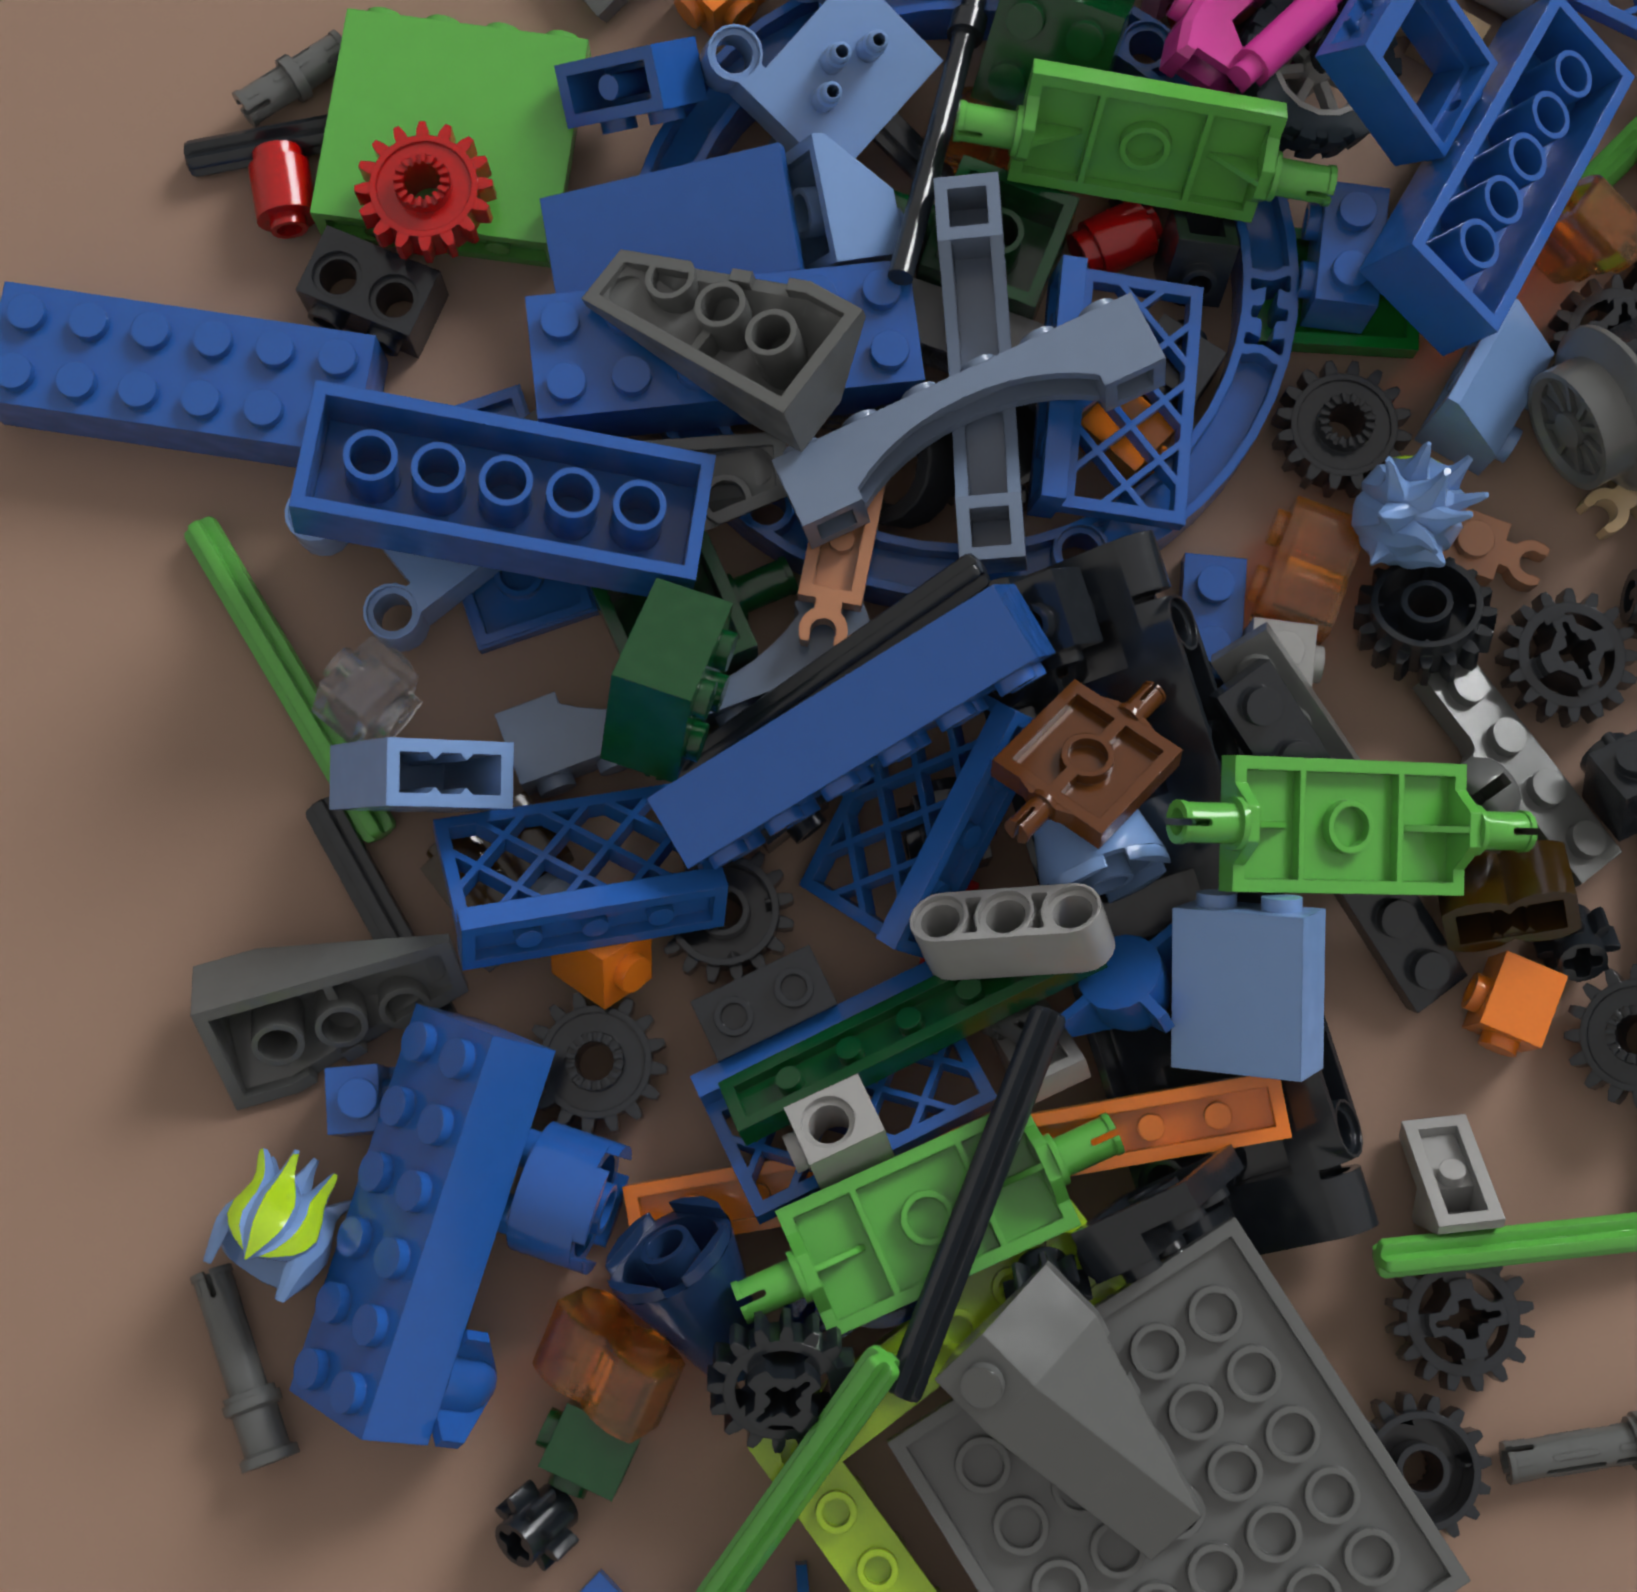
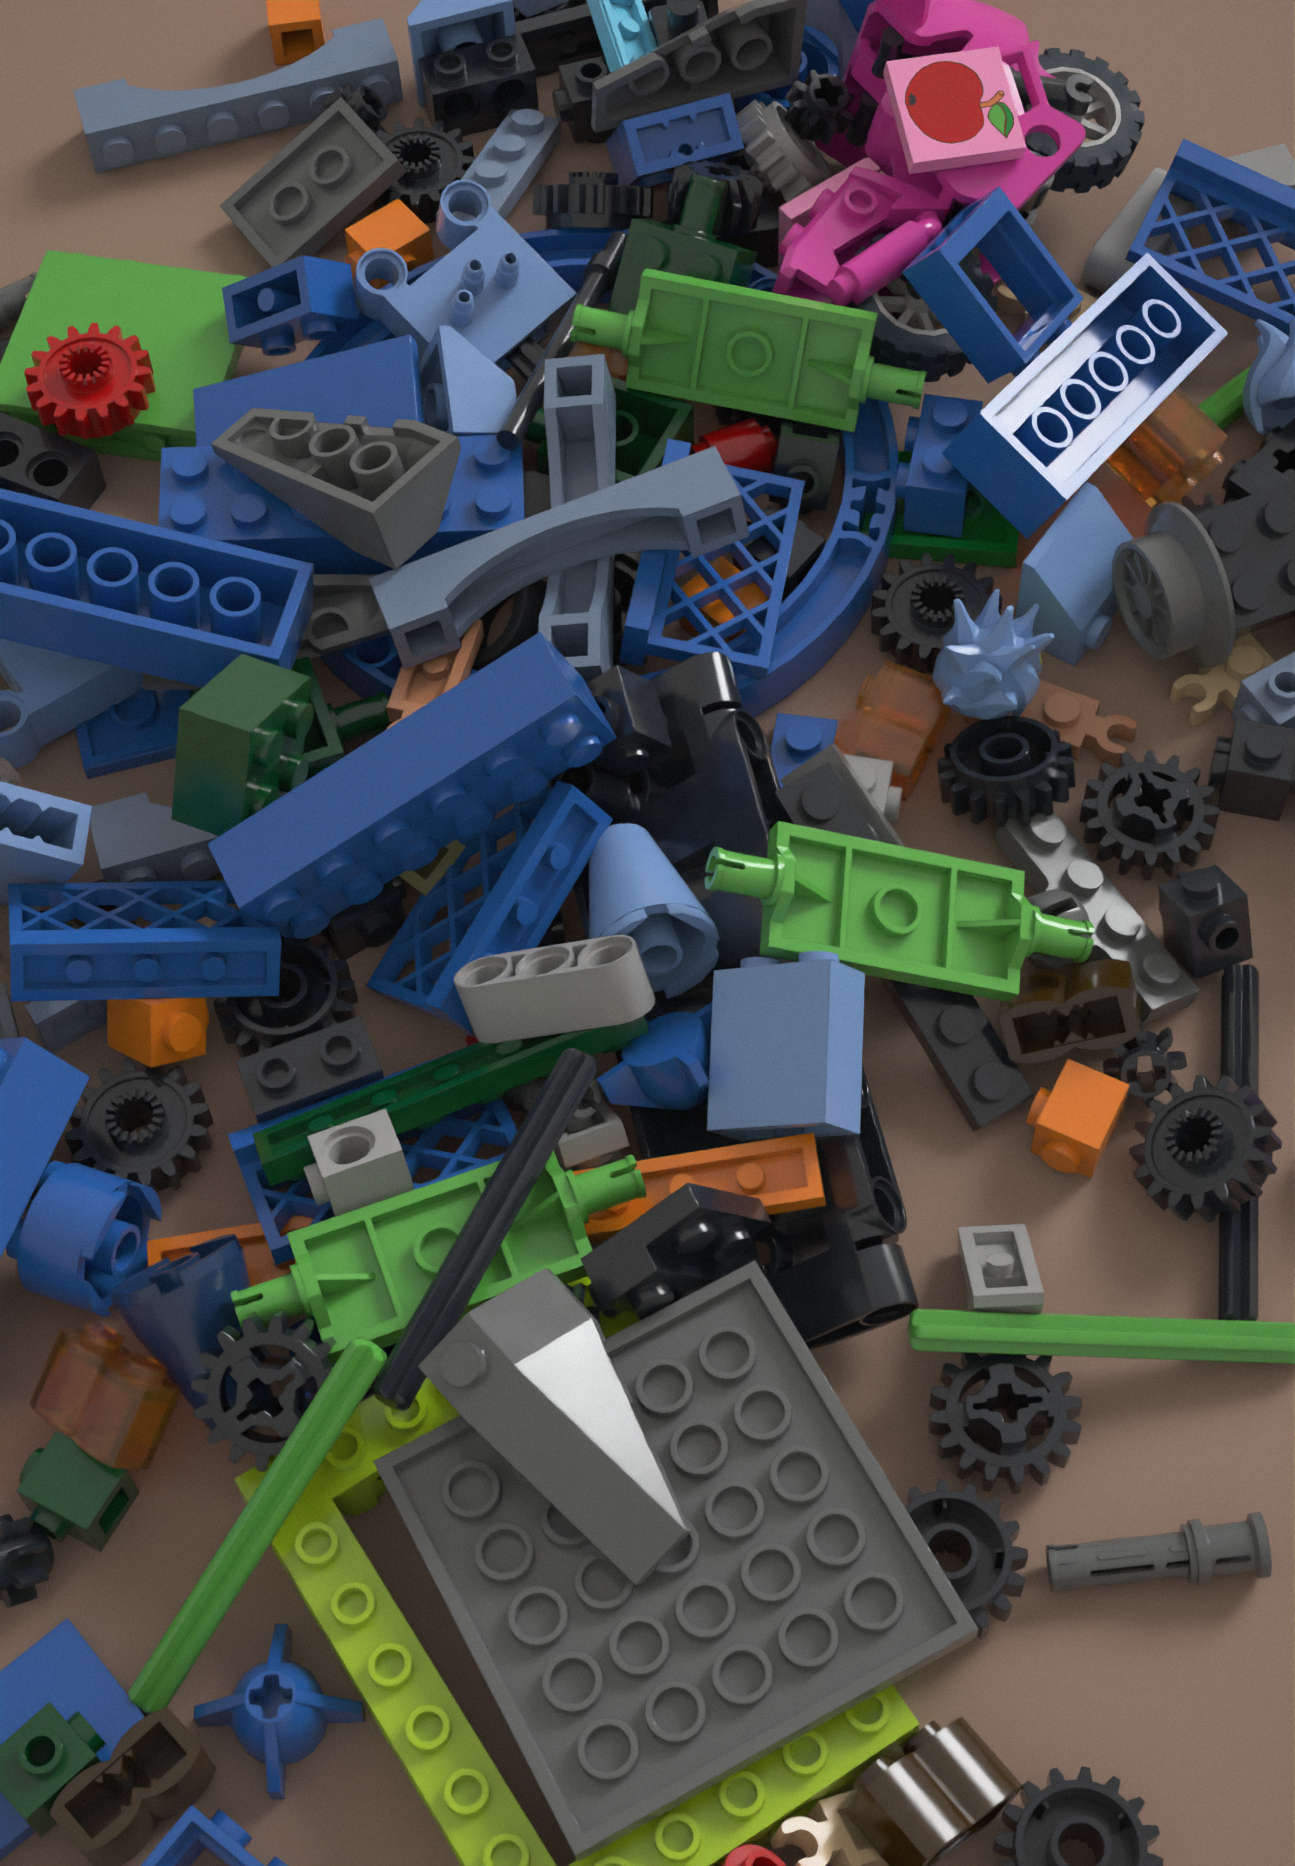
camera: 10 degrees right, 20 degrees down
(1086, 763) = (637, 833): reddish brown plate -> none

